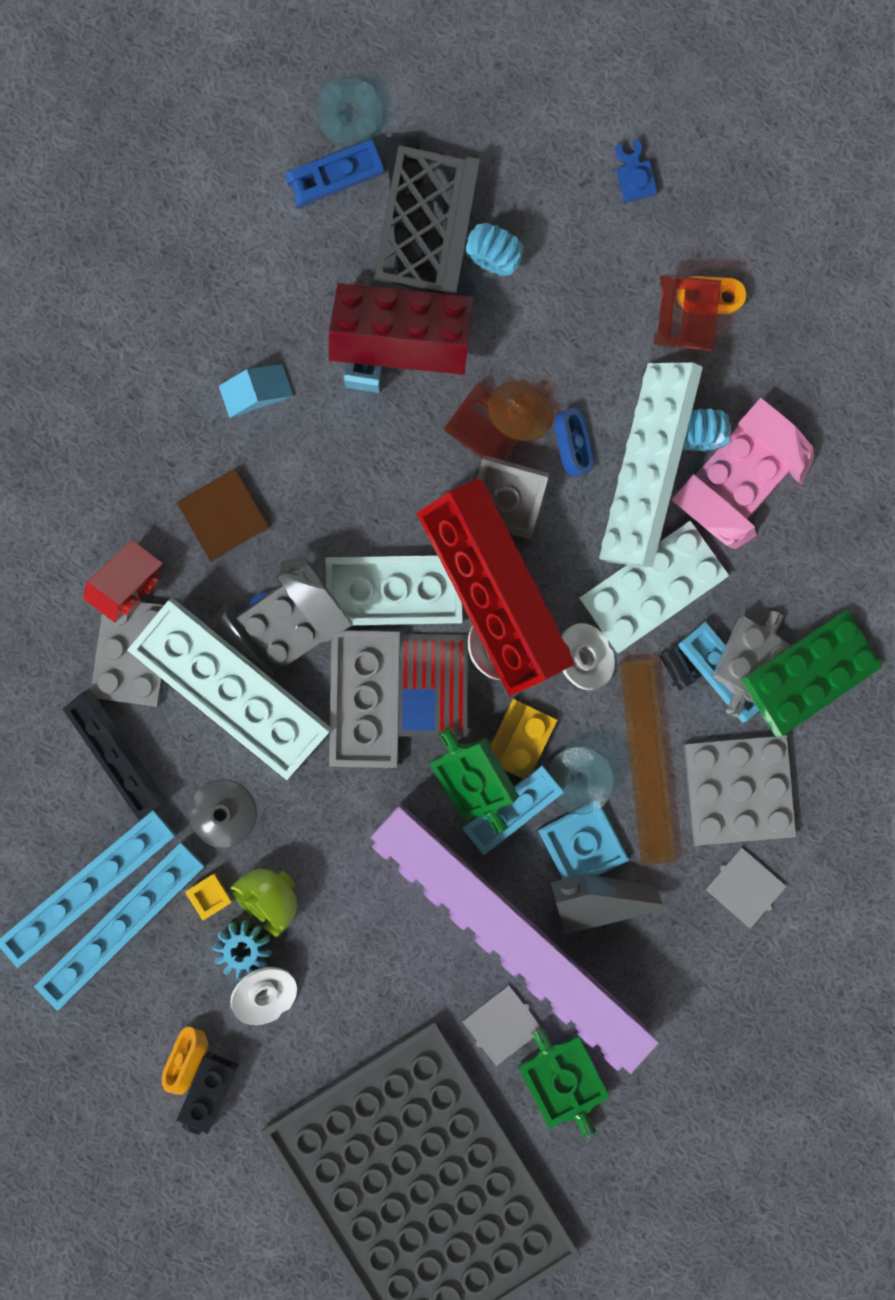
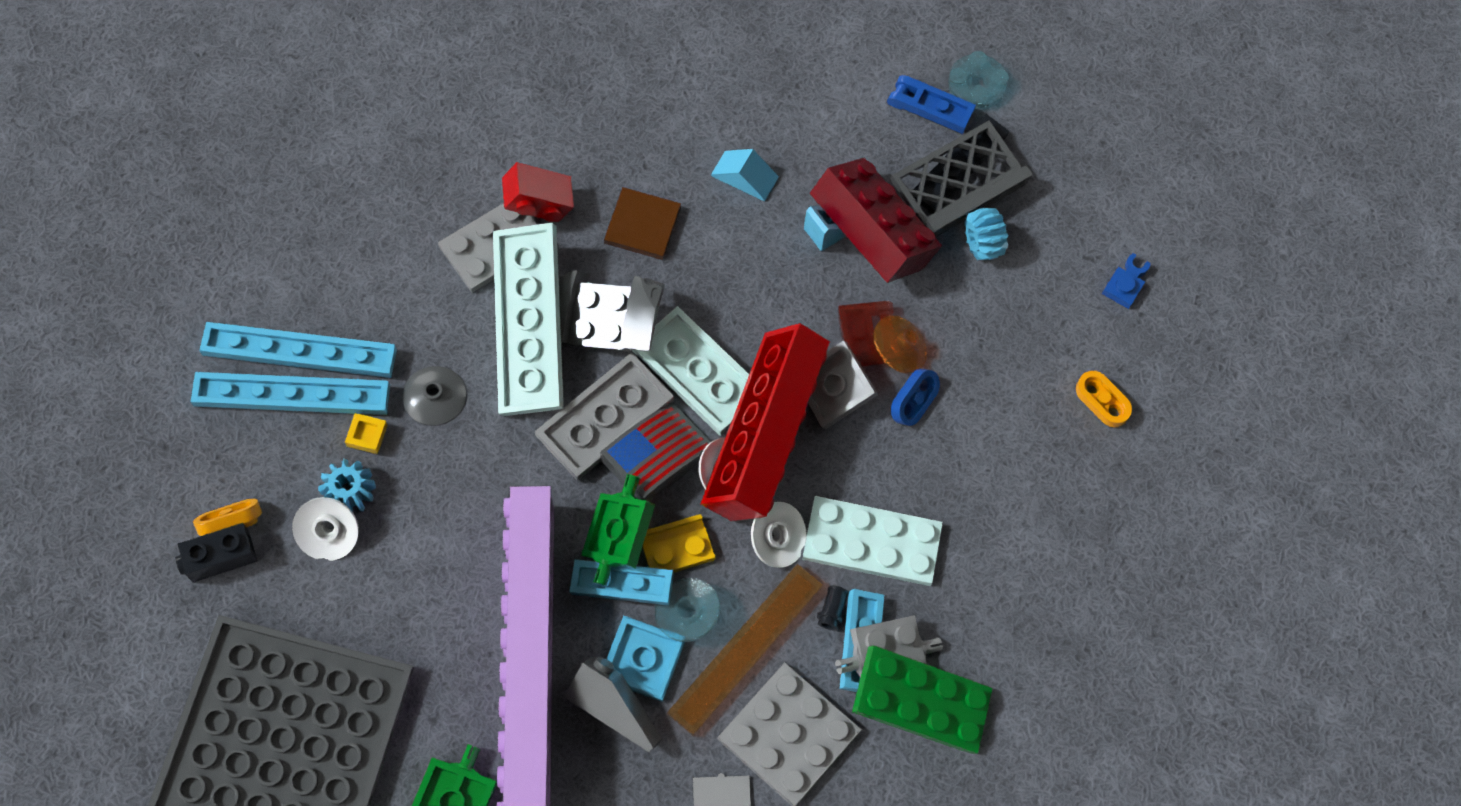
camera: 40 degrees right, 20 degrees down
(114, 754) = (412, 288): black plate -> none
(268, 898) = (401, 469): lime cylinder -> none
(502, 1025) = (453, 721): light grey piece -> none
(650, 463) = (951, 455): light aqua plate -> none
(698, 315) = (1082, 396): clear red plate -> none
(707, 430) = (1009, 469): medium azure gear -> none
(745, 474) = (1011, 530): bright pink piece -> none

